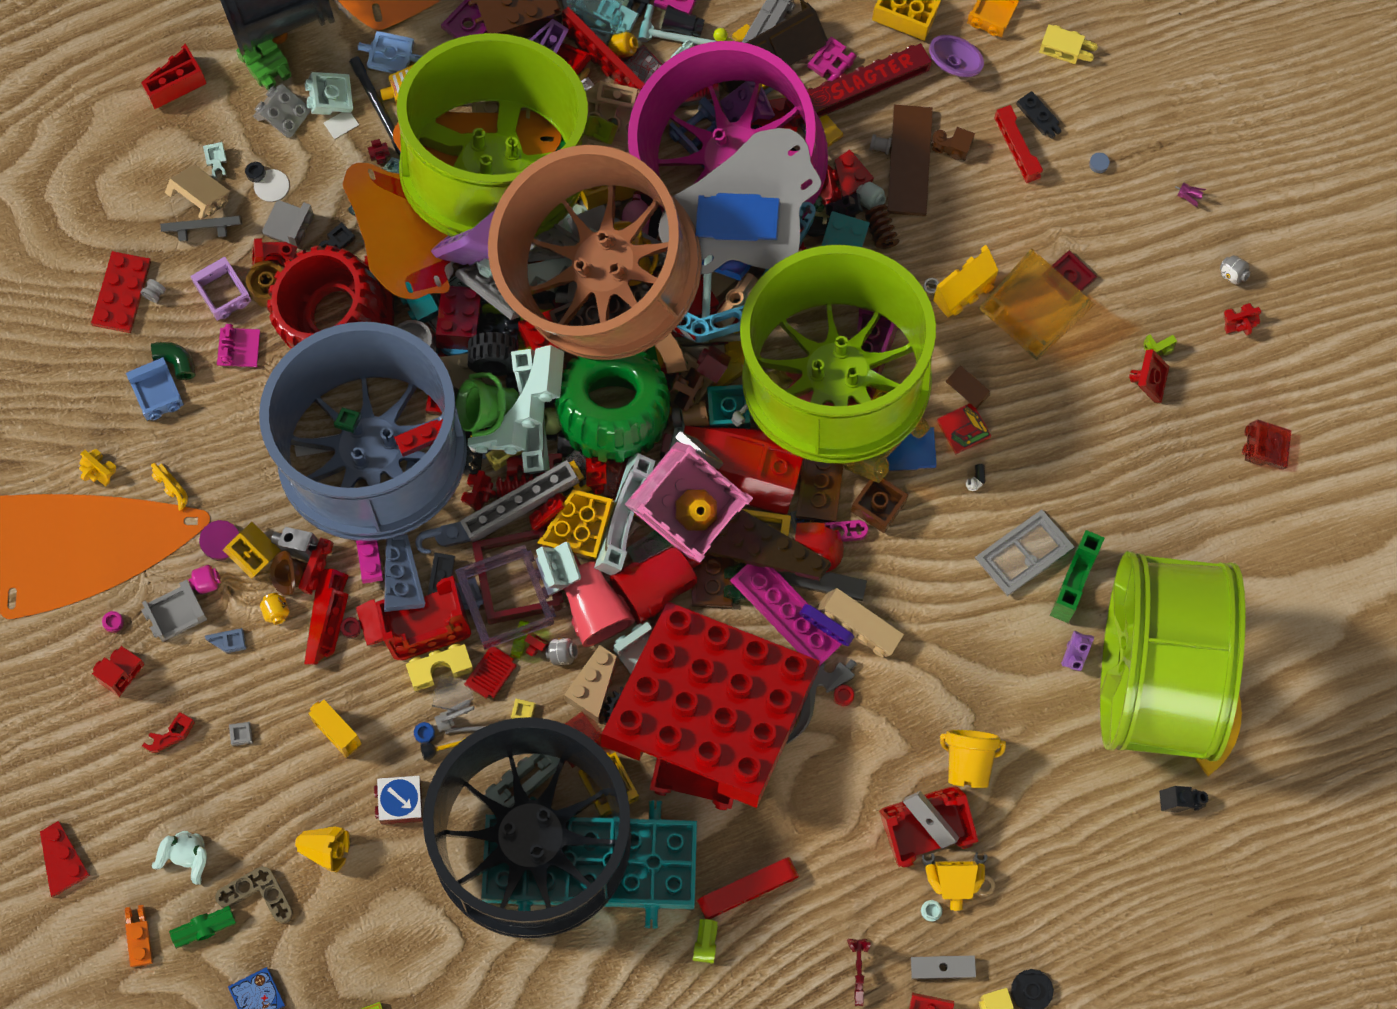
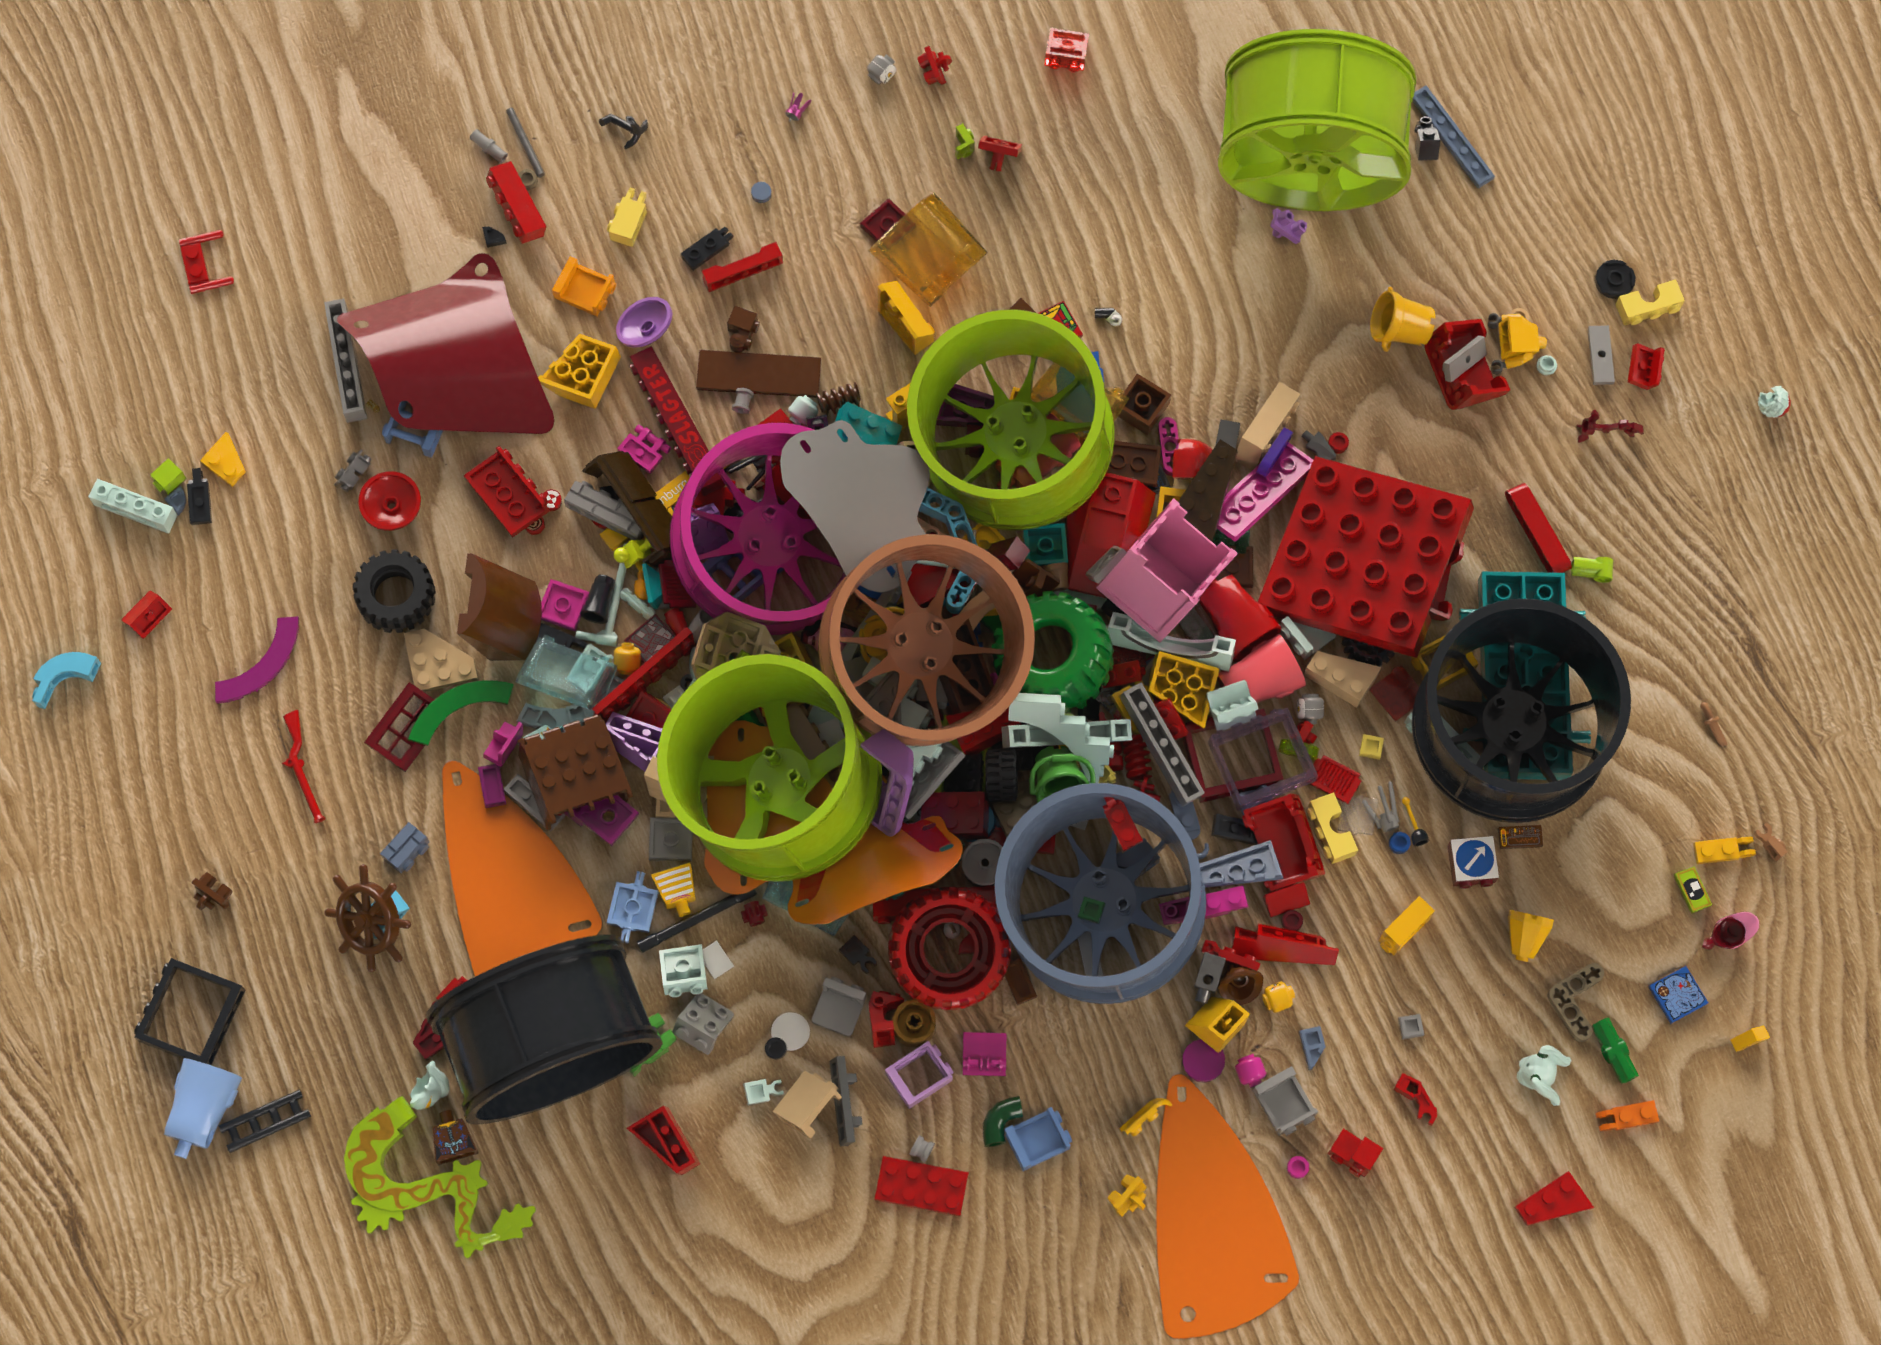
camera: 90 degrees left, 0 degrees up
(422, 859) = (1520, 837): none -> reddish brown tile
(687, 507) = (1170, 565): yellow cone -> none
(737, 217) = (876, 504): blue piece -> none
(737, 417) = (1062, 533): light grey hand -> none
(933, 282) = (906, 355): light grey hinge -> none
(1024, 552) = (1184, 274): clear door -> none
(1076, 576) = (1193, 218): green arch -> none
(1162, 42) = (629, 125): none -> black piece
(1190, 829) = (1453, 137): none -> sand blue tile

